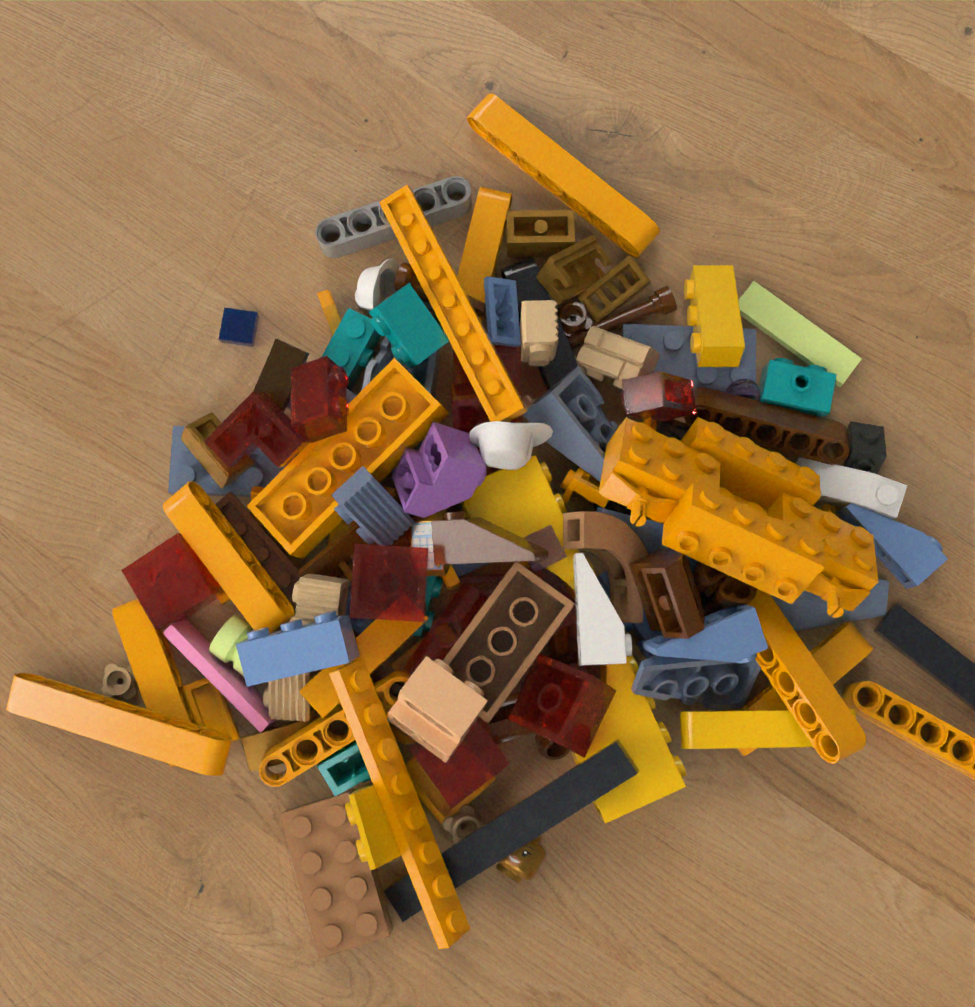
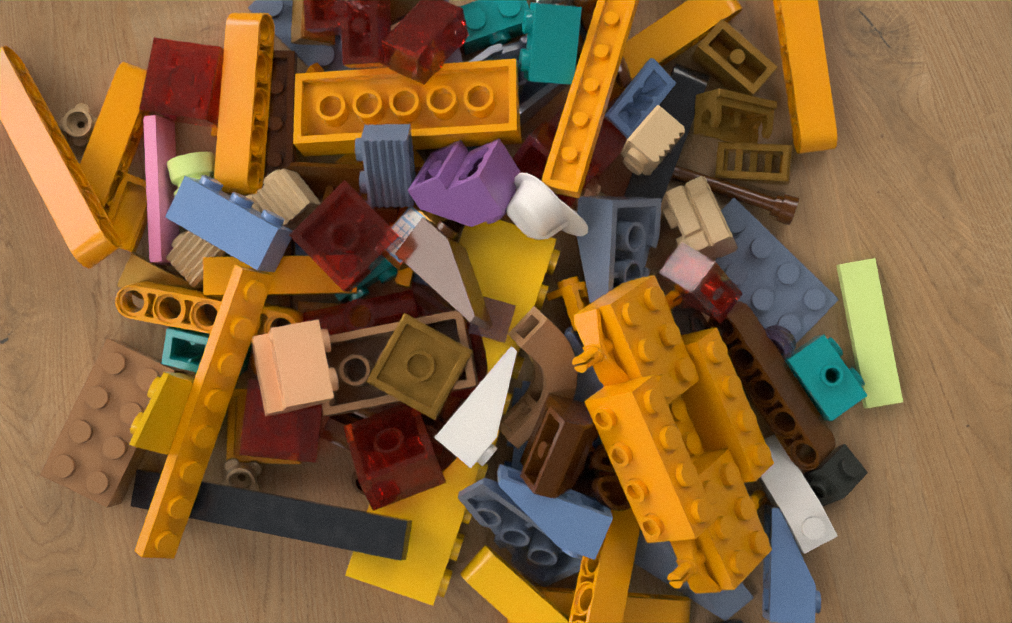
camera: 40 degrees right, 5 degrees up
(523, 862) = (261, 547): pearl gold head -> none
(524, 625) = (419, 366): none -> pearl gold tile
(576, 310) = (703, 149): reddish brown plate -> none
(714, 316) = (812, 257): yellow brick -> none

